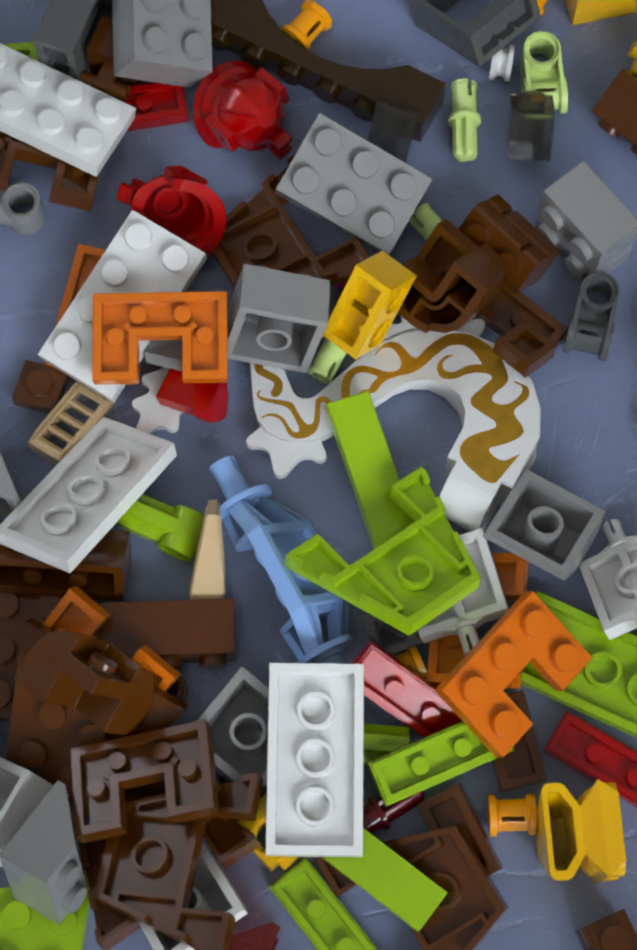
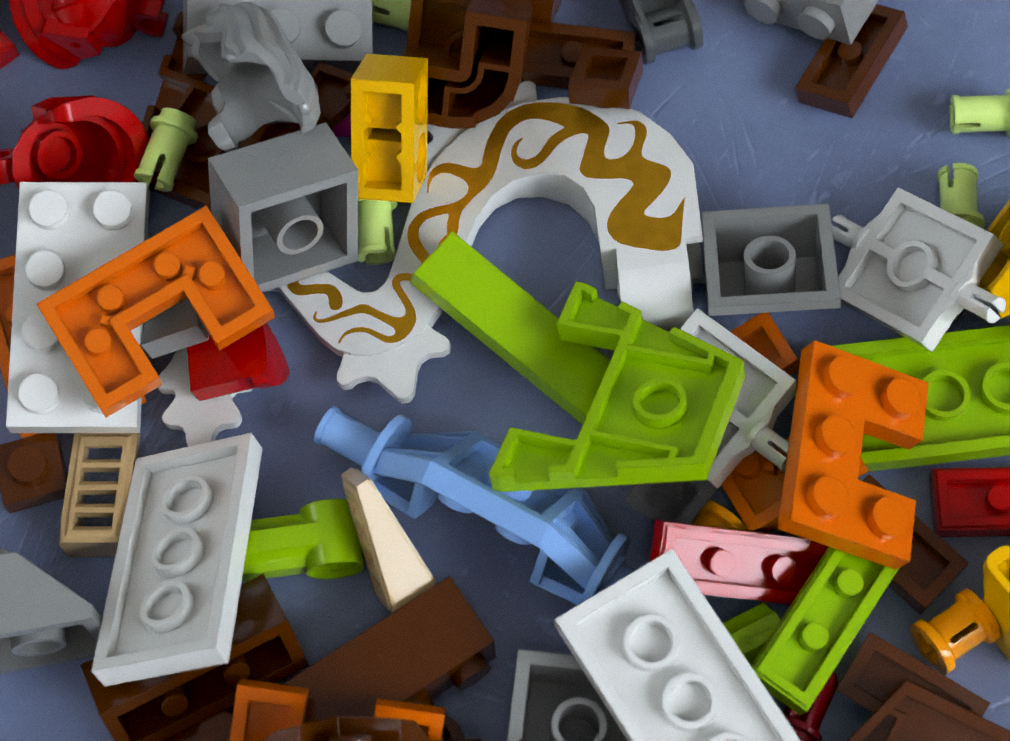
camera: 30 degrees left, 5 degrees down
(234, 236) = (167, 147): none -> yellowish green pin
(306, 228) = (255, 73): none -> light grey hair

